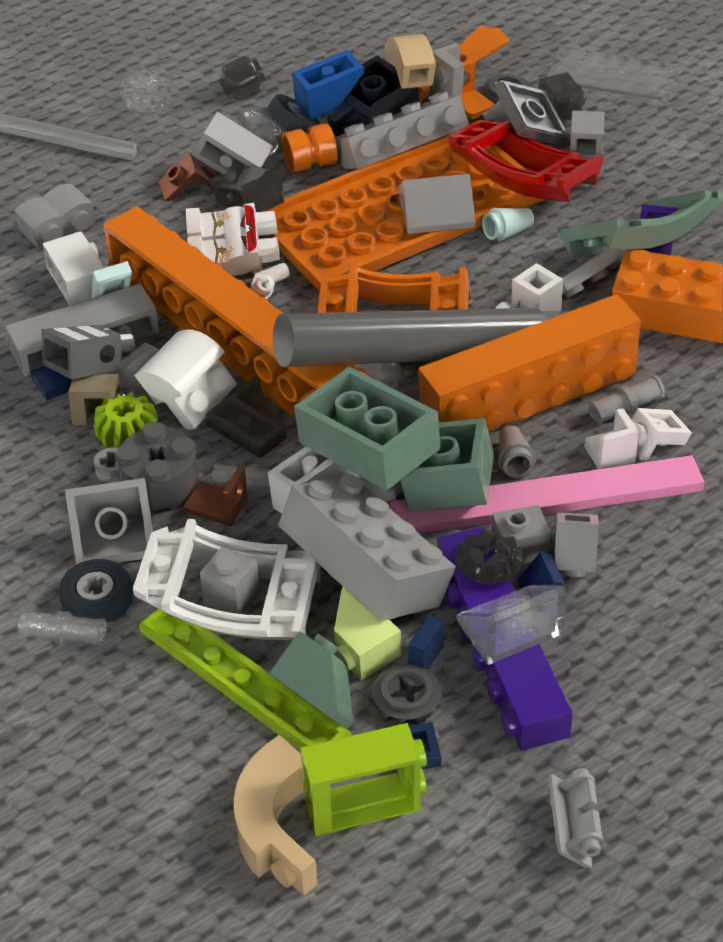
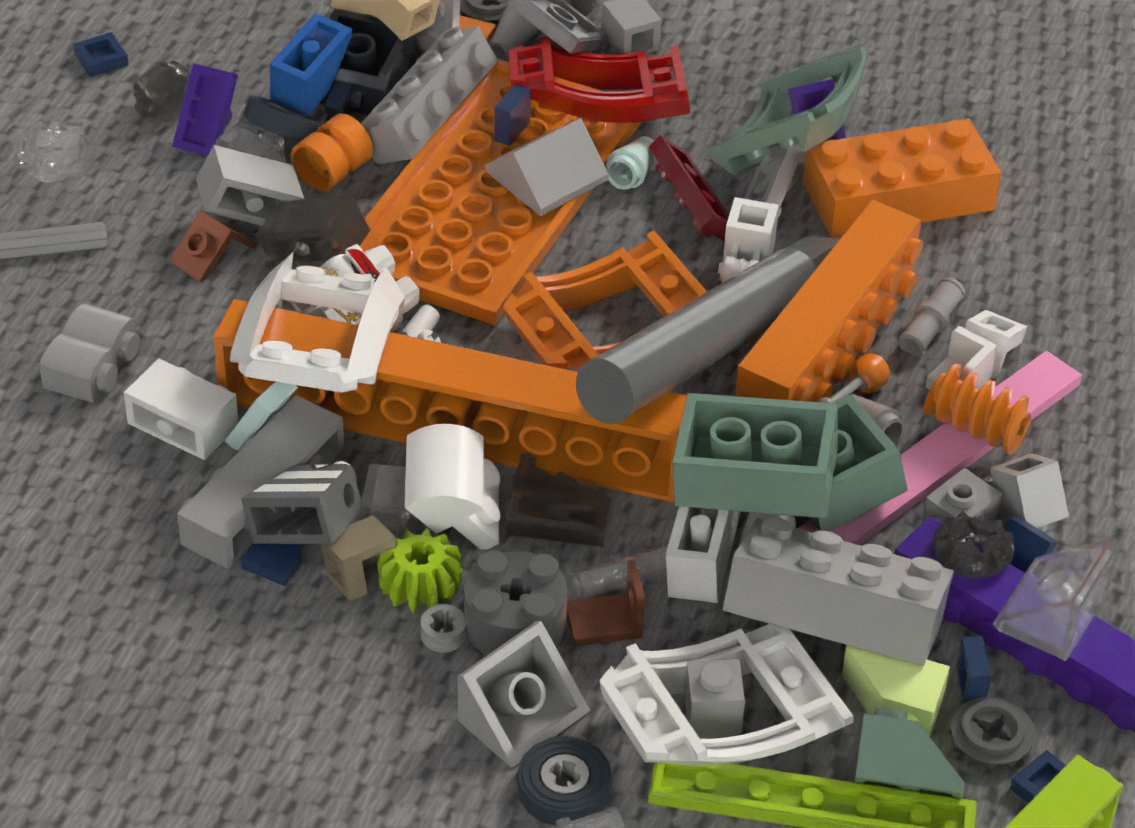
camera: 35 degrees left, 0 degrees up
(212, 239) = (321, 366): none -> white wedge
(230, 45) = (100, 54): none -> dark blue tile
(252, 91) = (205, 109): none -> dark purple tile
(439, 159) = (512, 114): none -> dark blue tile
(532, 243) = (690, 188): none -> dark red plate
(539, 420) = (866, 376): none -> orange hinge
(589, 470) = (979, 409): none -> orange piece

